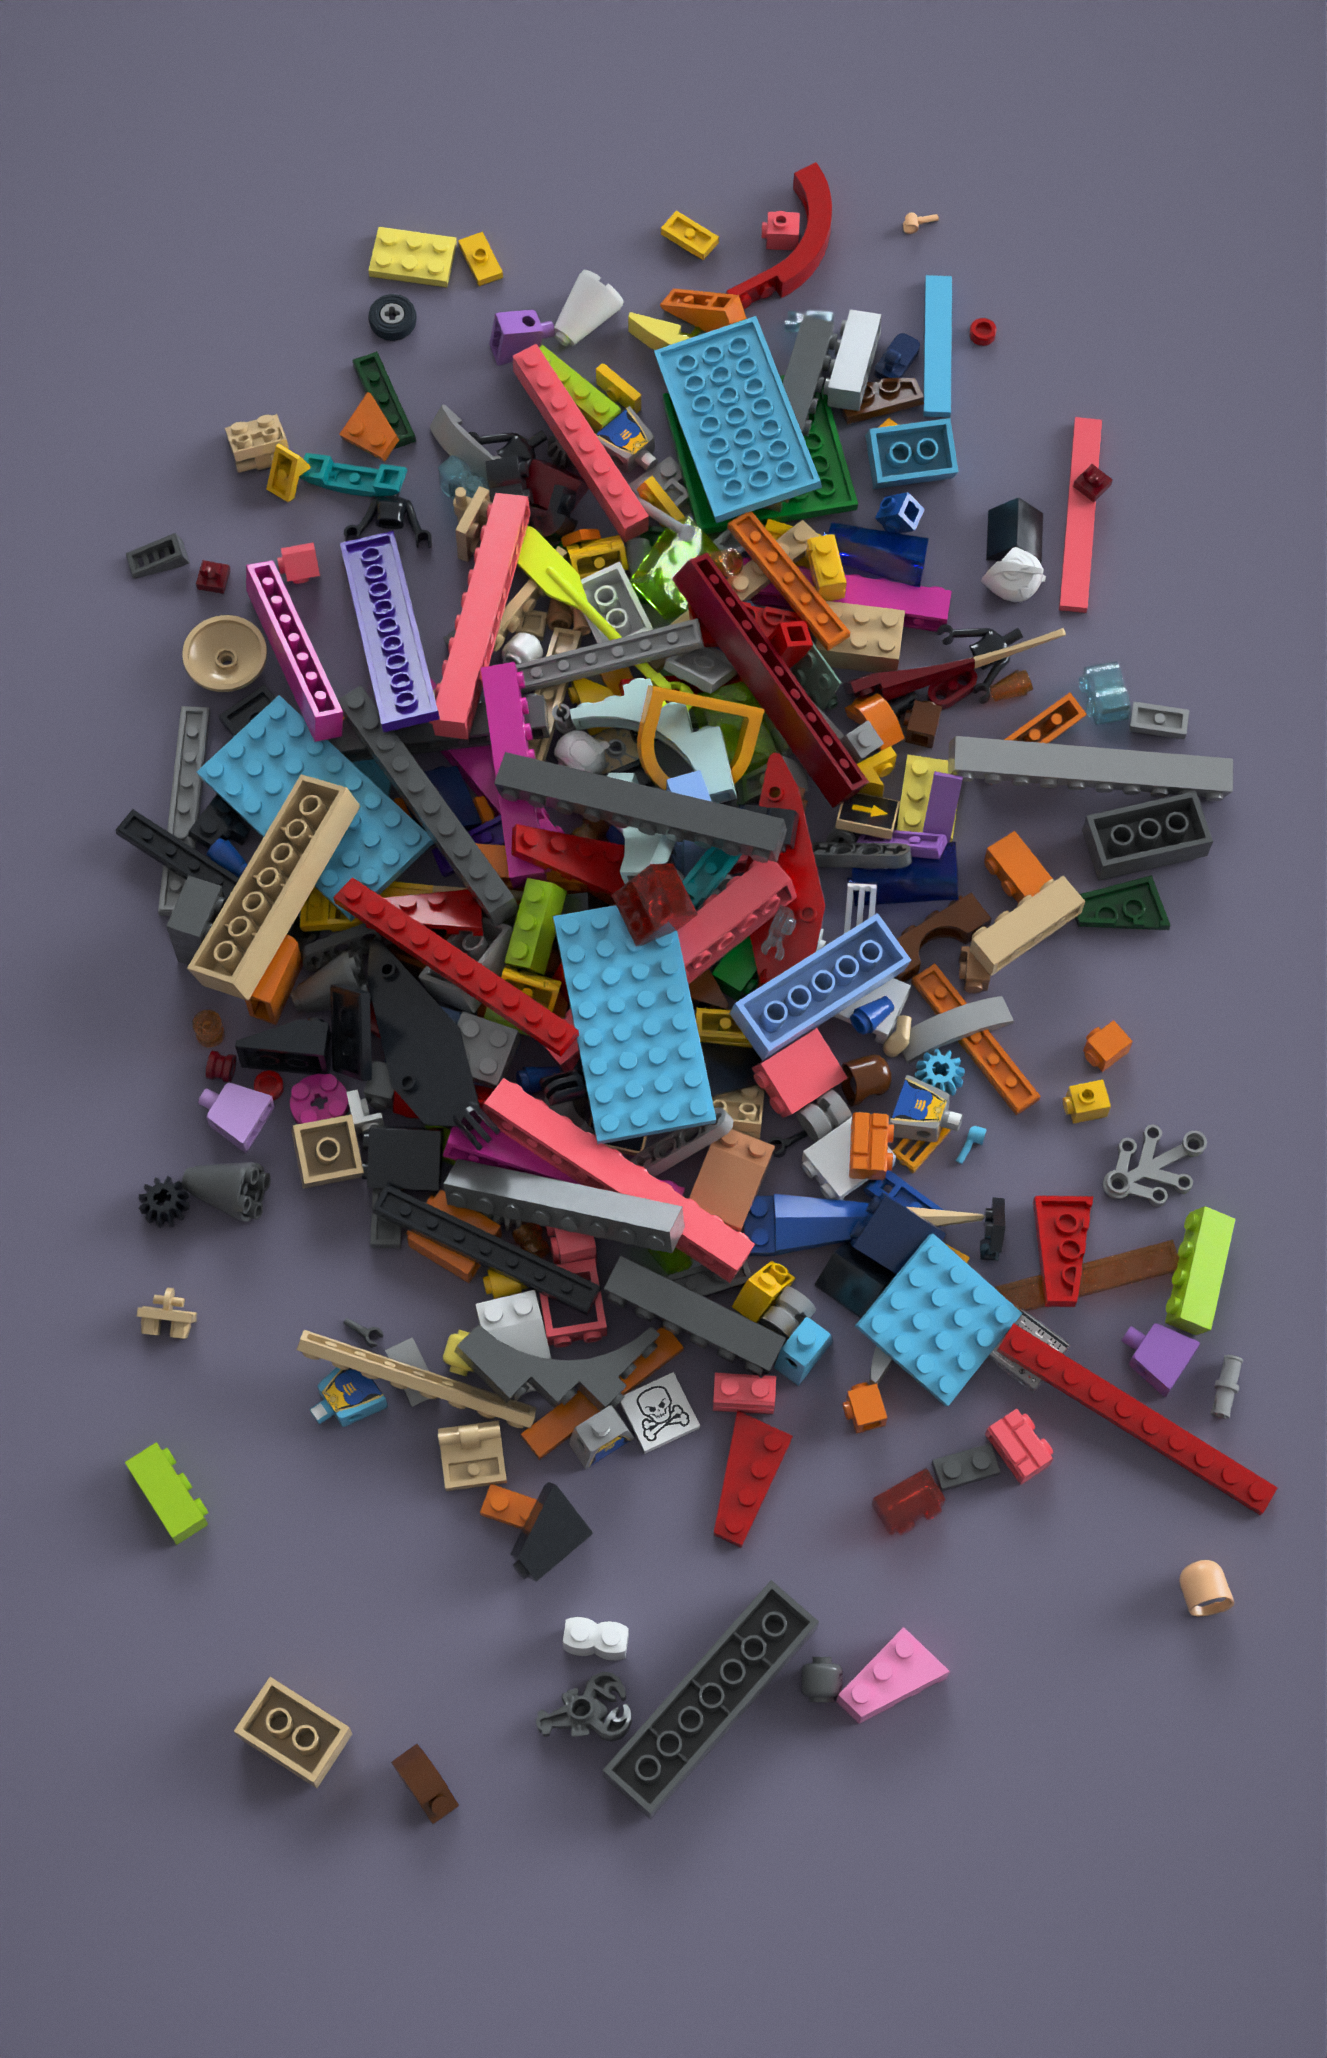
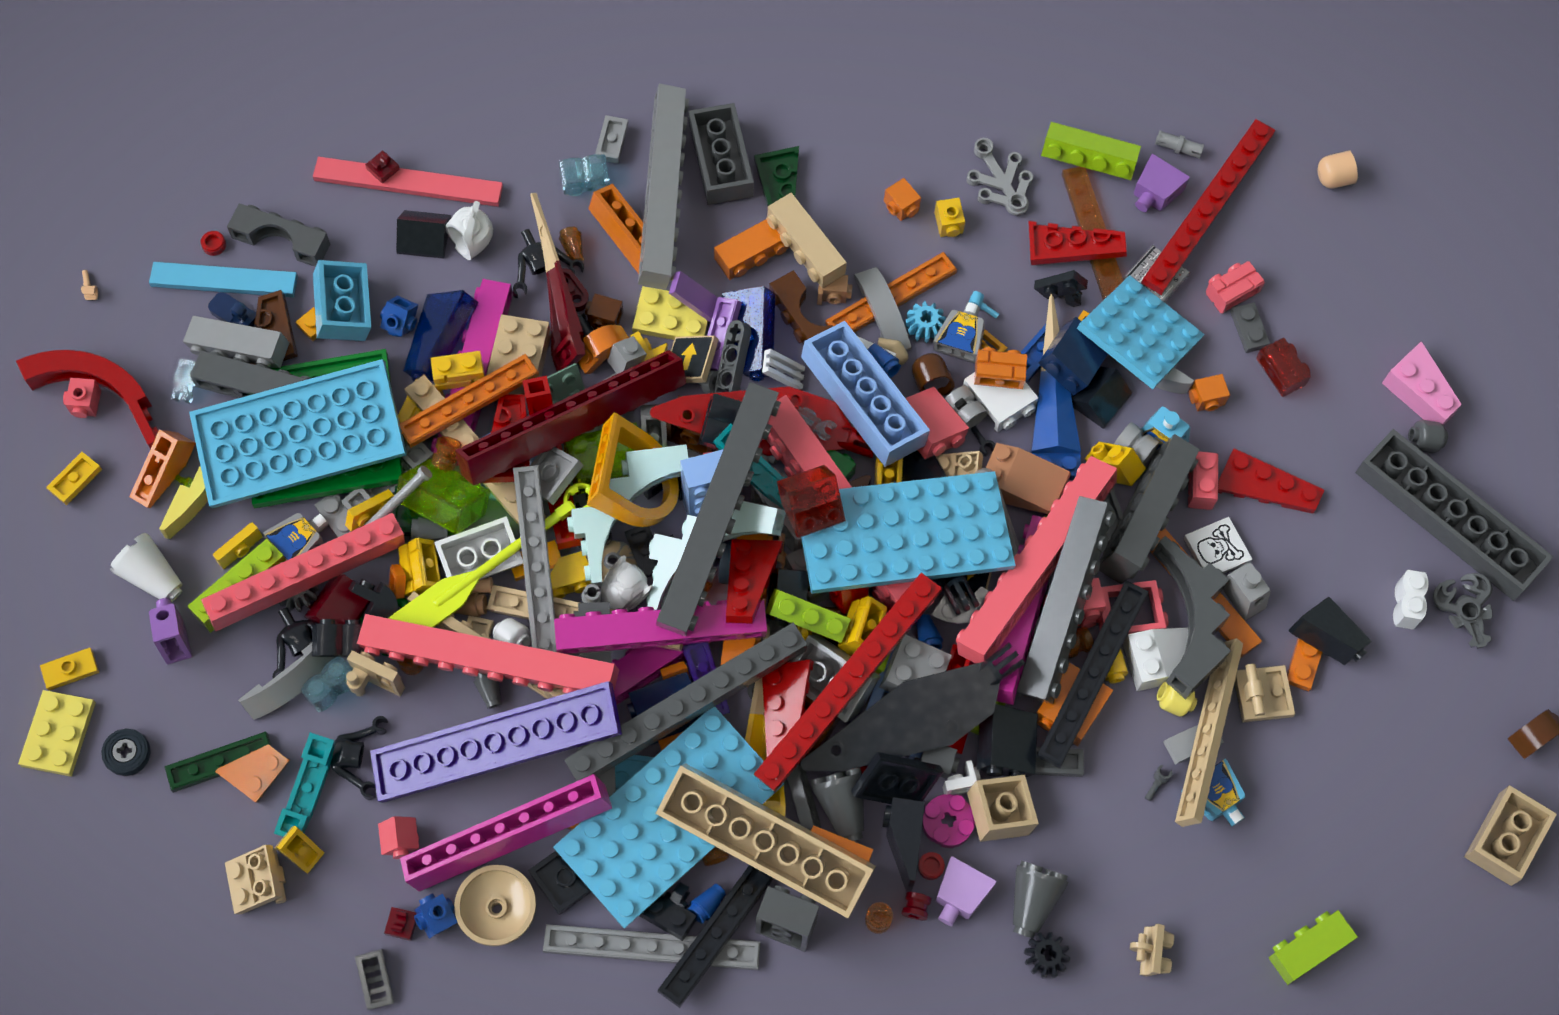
camera: 90 degrees left, 0 degrees up
(215, 591) = (444, 914): none -> blue brick
(987, 415) = (252, 225): none -> dark grey arch

